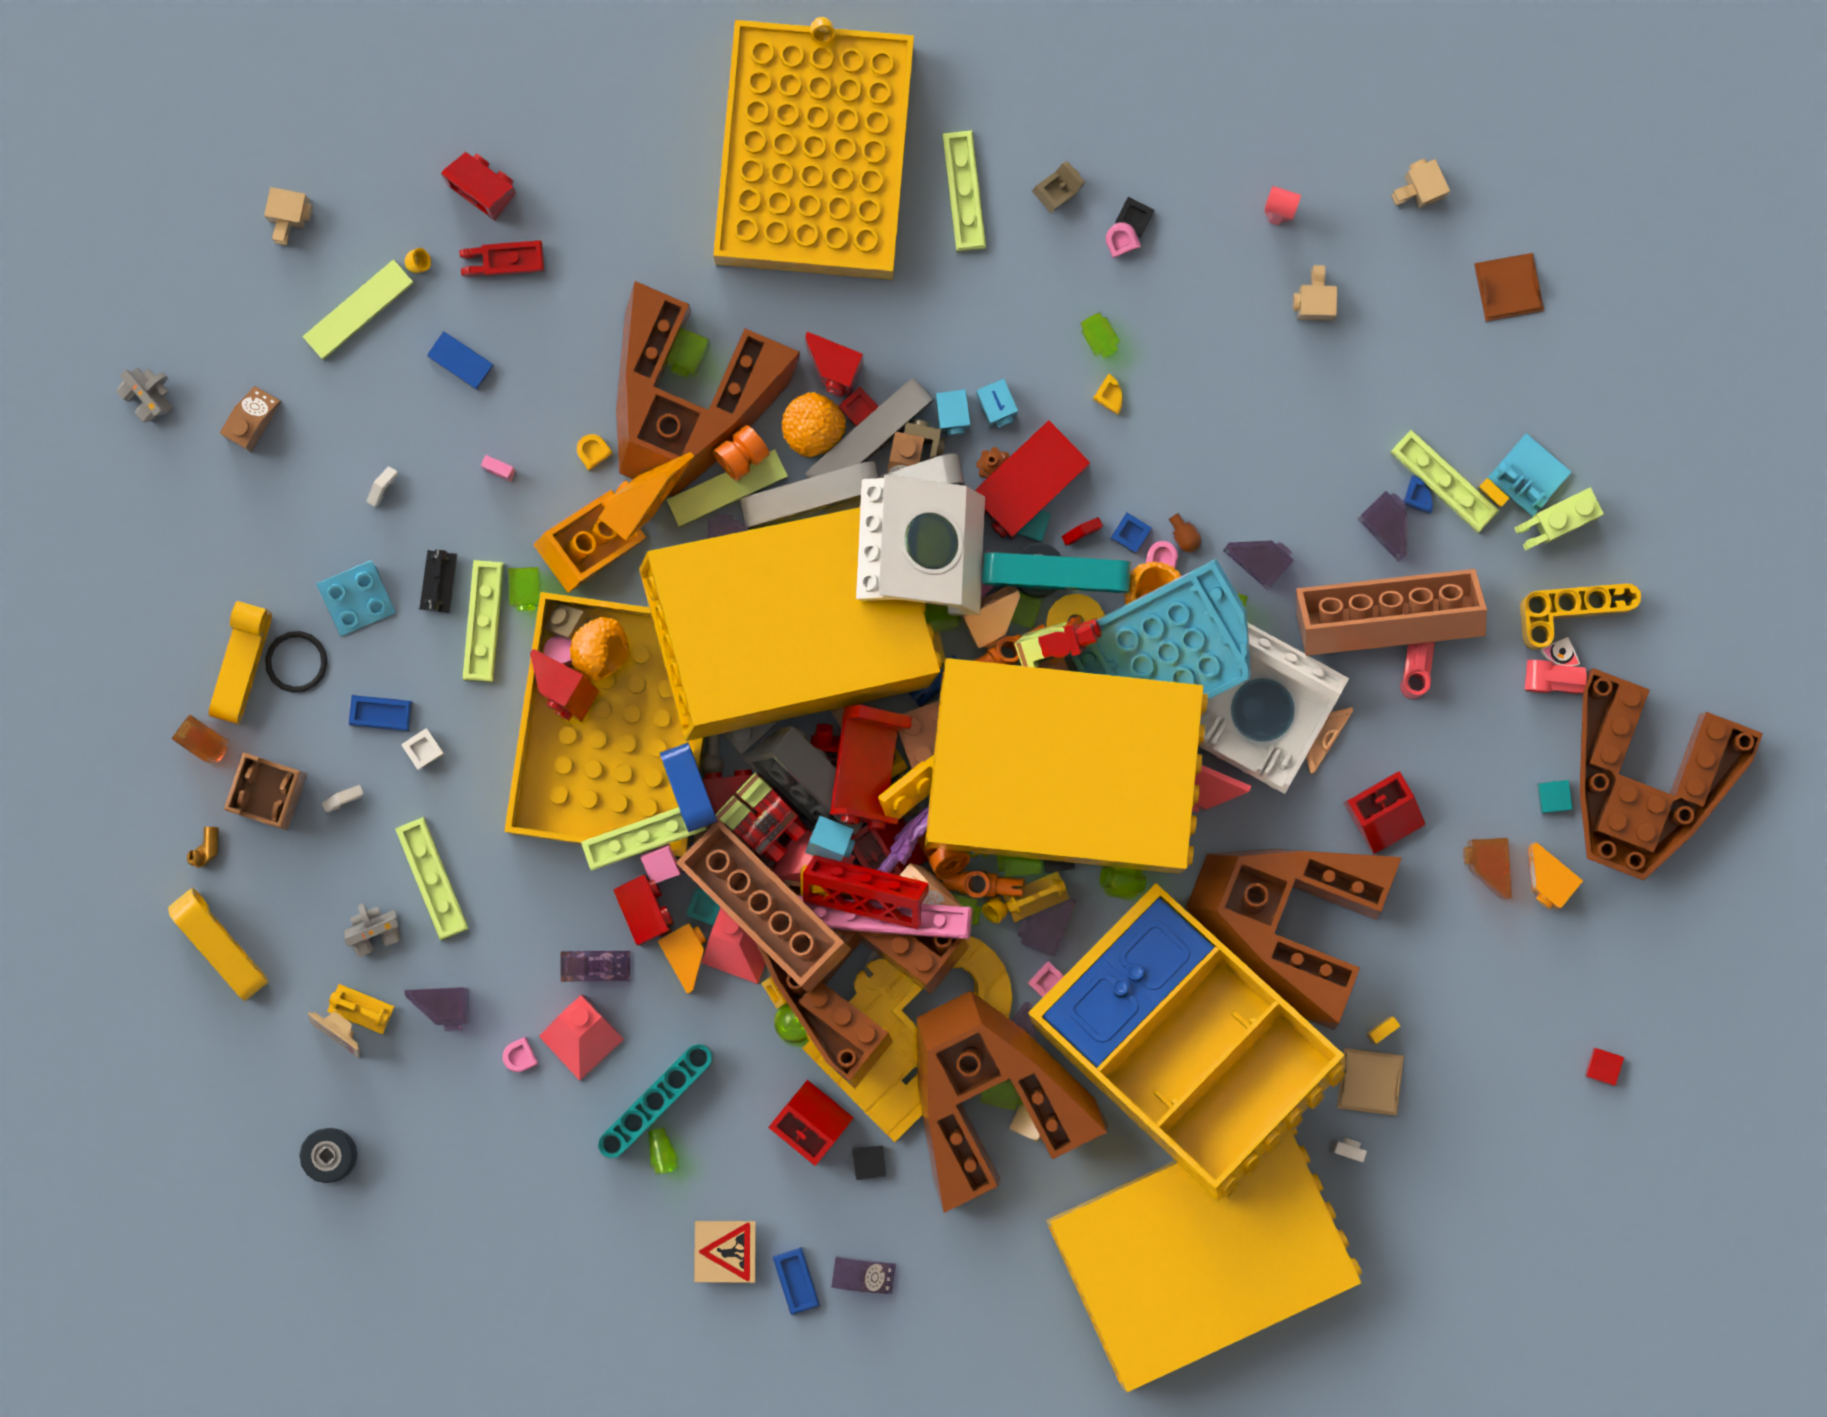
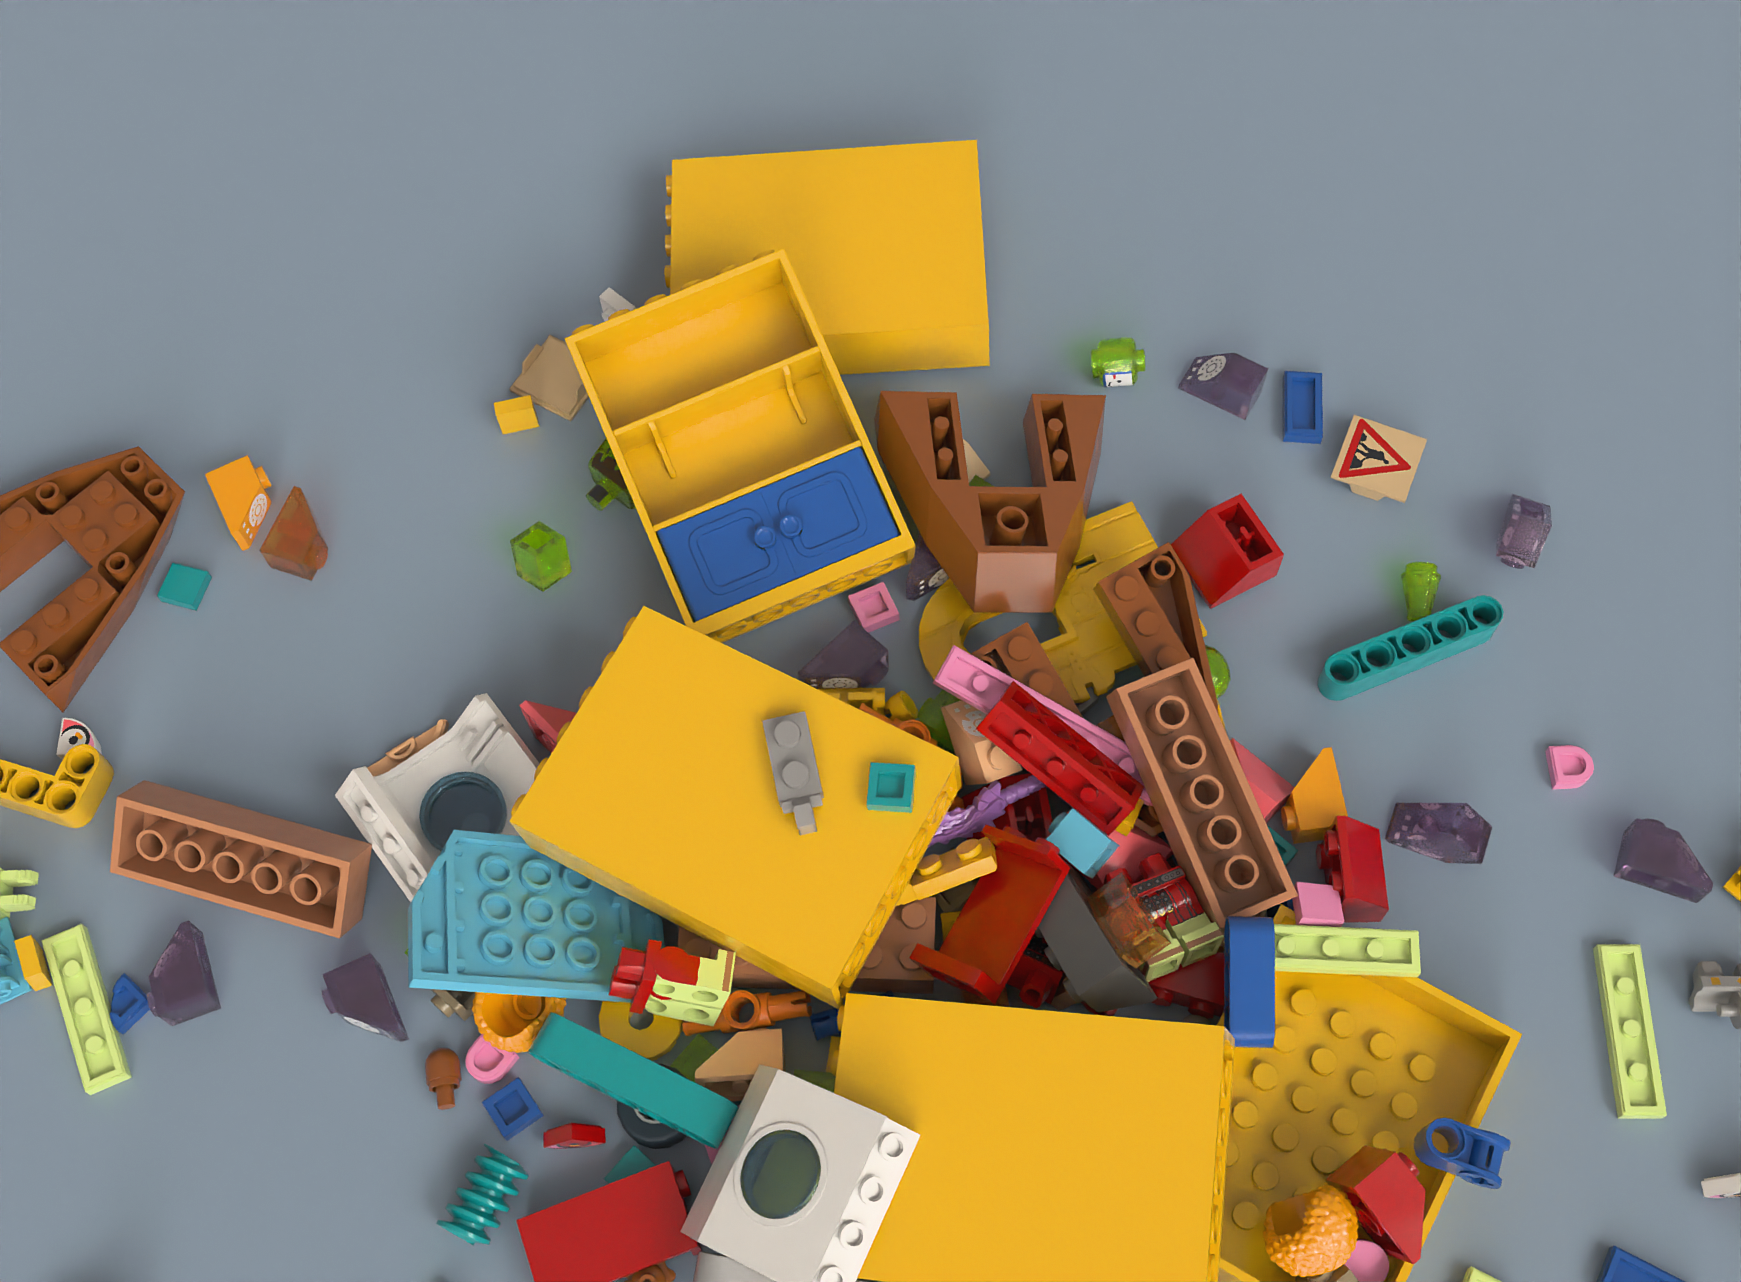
camera: 150 degrees left, 20 degrees down
(422, 749) = (1599, 1209): white plate -> none
(515, 734) = (1471, 1151): none -> blue piece
(581, 1037) = (1480, 759): coral slope -> none
(601, 1232) = (1523, 532): none -> clear purple slope
(781, 794) = (1127, 921): none -> clear orange slope
(869, 1162) = (1169, 495): black tile -> none
(948, 1258) = (1117, 362): none -> clear neon green head
(962, 801) = (891, 787): none -> teal tile
(1030, 790) = (794, 768): none -> light grey hinge
(1118, 470) = (483, 1197): none -> teal piece
(1243, 898) = (584, 595): dark orange piece -> none
(1303, 918) = (541, 556): none -> clear neon green brick
(1385, 812) = (382, 642): red slope -> none
(1418, 665) = (249, 788): coral piece -> none
(1546, 677) = (107, 717): coral piece -> none
(1604, 1066) = (302, 300): red tile -> none

